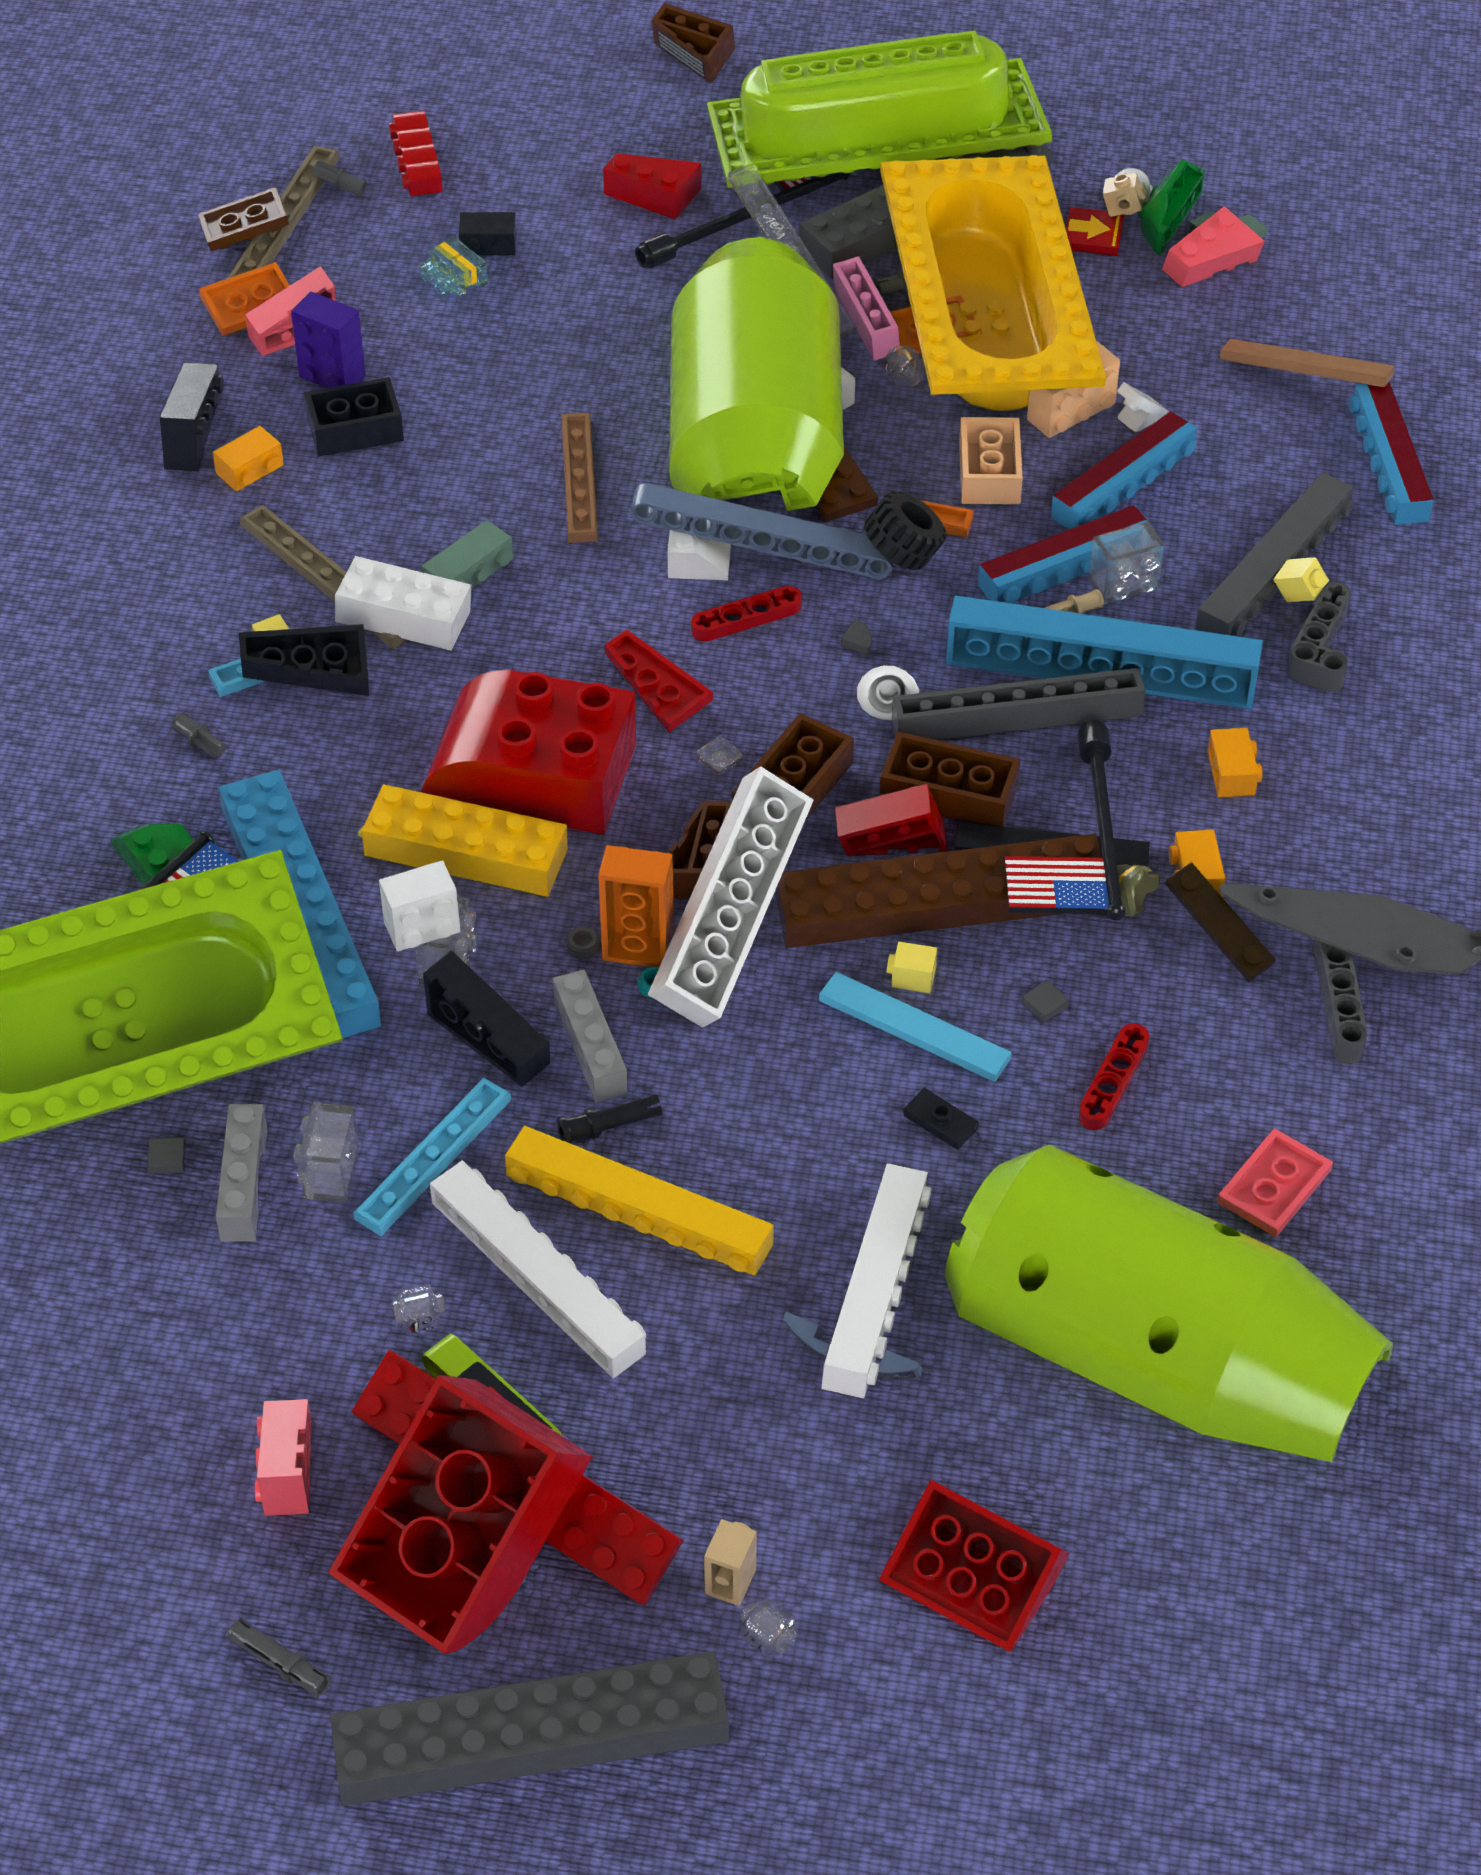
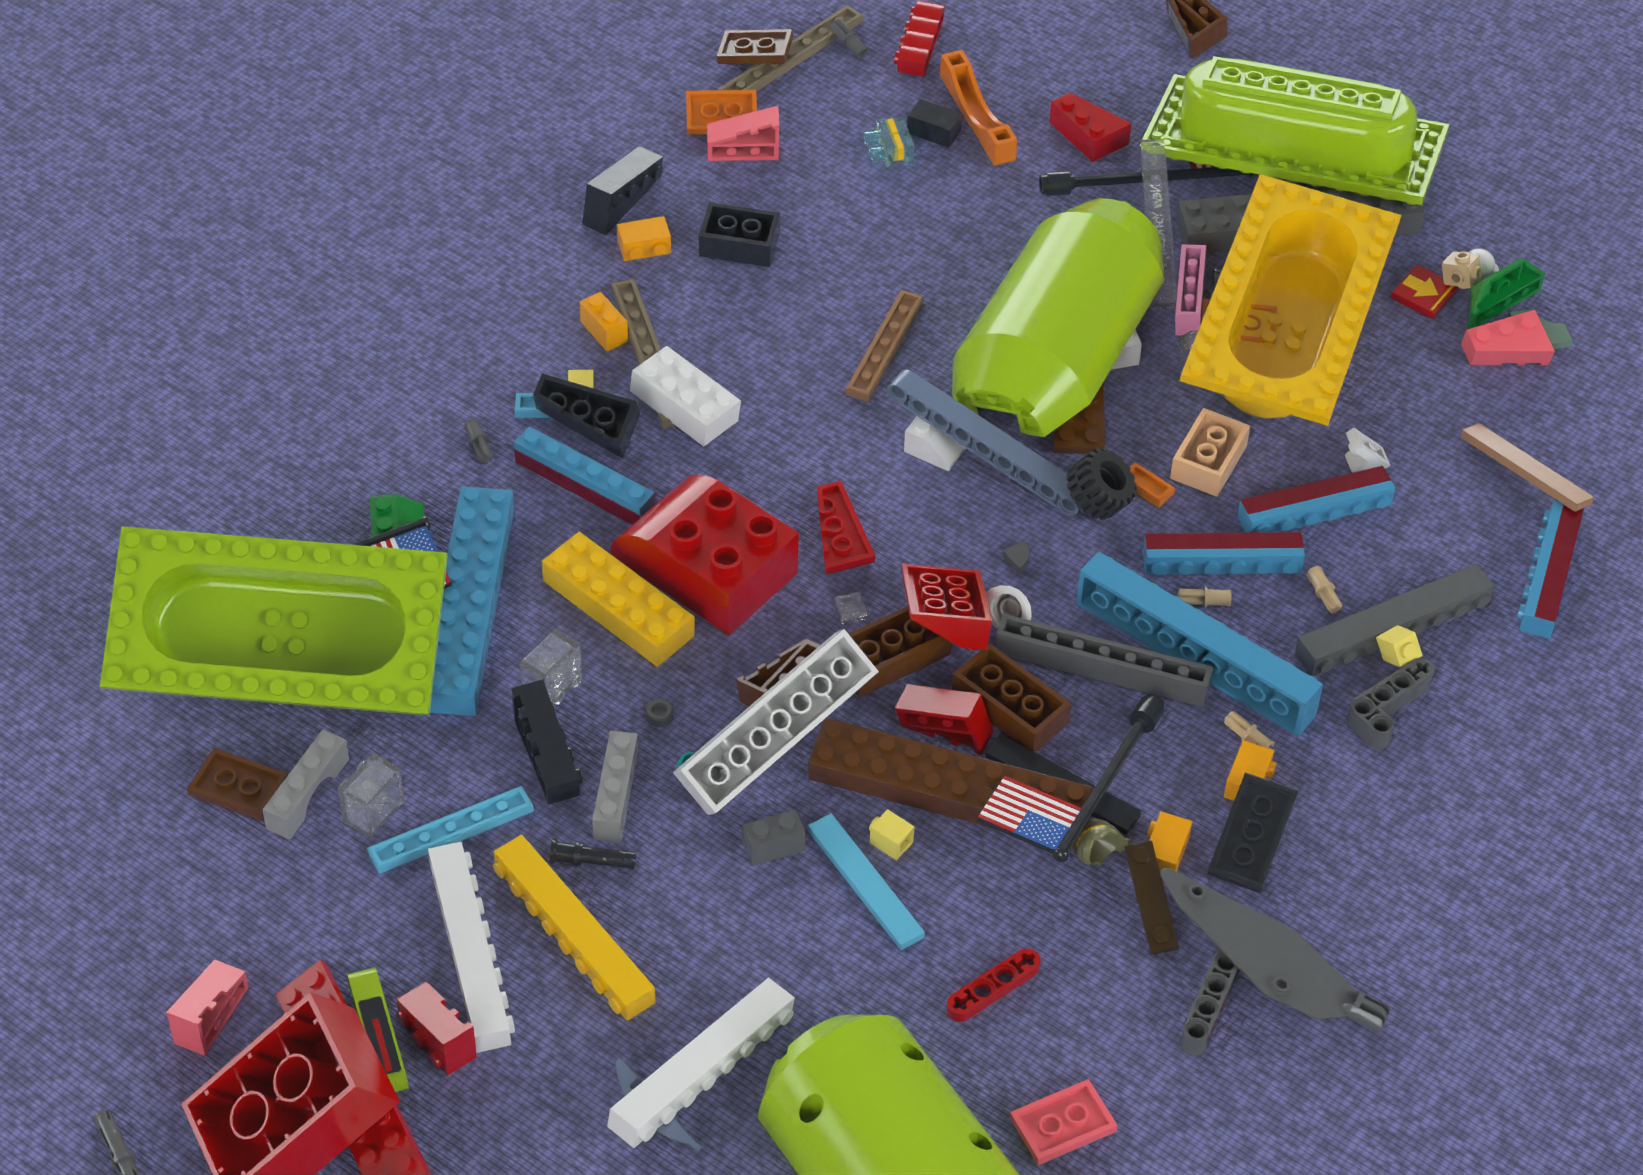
camera: 25 degrees right, 0 degrees up
(160, 1205) = (236, 783): none -> reddish brown plate
(166, 1155) = (265, 749): dark grey tile -> none
(260, 559) = (603, 321): none -> light orange brick
(328, 341) = (750, 168): dark purple brick -> none
(344, 728) = (582, 476): none -> dark azure brick
(418, 1308) = (367, 938): clear head -> none
(419, 905) = (530, 635): white brick -> none
(473, 555) = (759, 379): sand green brick -> none
(488, 180) = (992, 134): none -> orange arch
(560, 1367) = (437, 1028): none -> red wedge
(636, 905) = (696, 697): orange brick -> none
(786, 600) = (944, 498): red beam -> none
(793, 1020) = (773, 837): none -> dark grey brick
(837, 705) = (949, 603): none -> red slope
(940, 1118) = (839, 961): black plate -> none
(1045, 1001) = (978, 903): dark grey tile -> none
(1060, 409) = (1297, 433): light nougat brick -> none
(1126, 562) = (1264, 577): clear brick -> none
(1187, 555) = (1324, 589): none -> tan axle
(1200, 721) = (1246, 730): none -> tan axle
(1276, 817) = (1252, 832): none -> black tile

